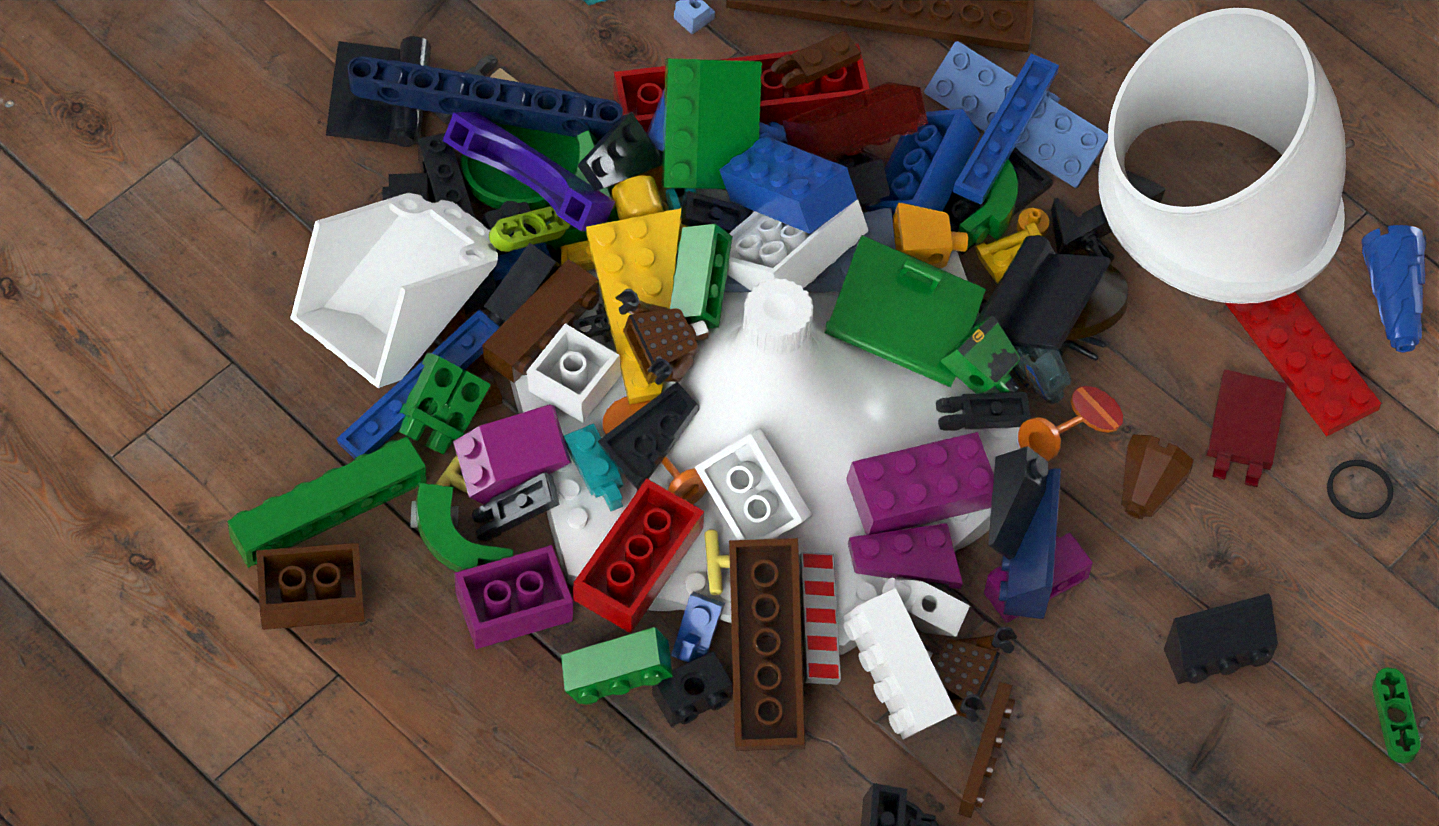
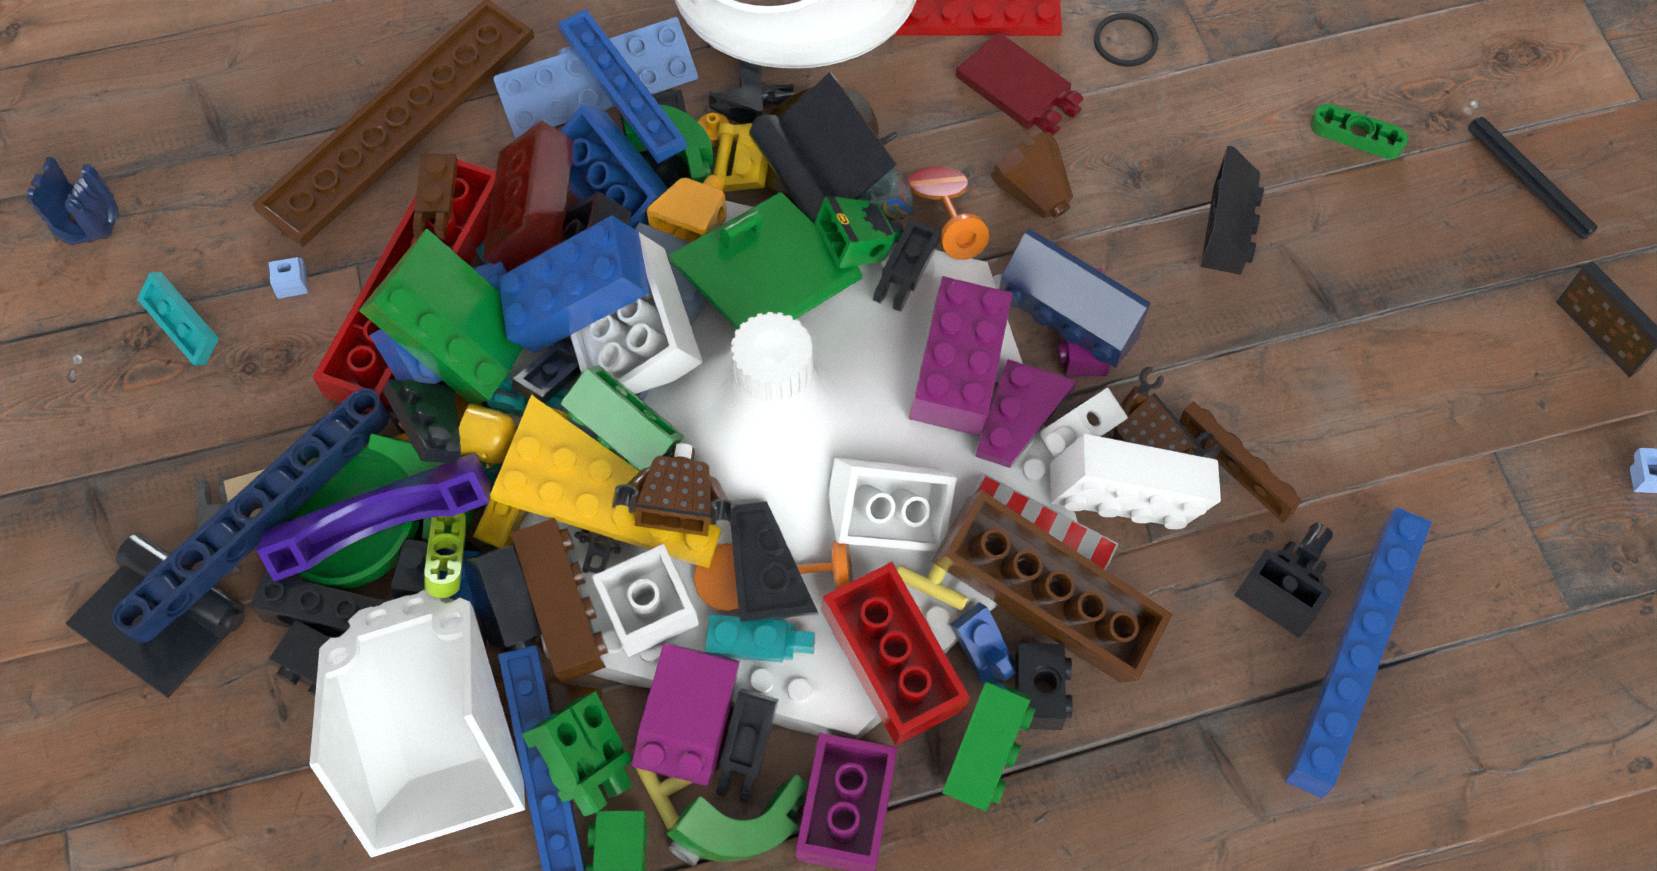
camera: 55 degrees left, 5 degrees up
(1016, 494) = (1028, 277): black slope -> none

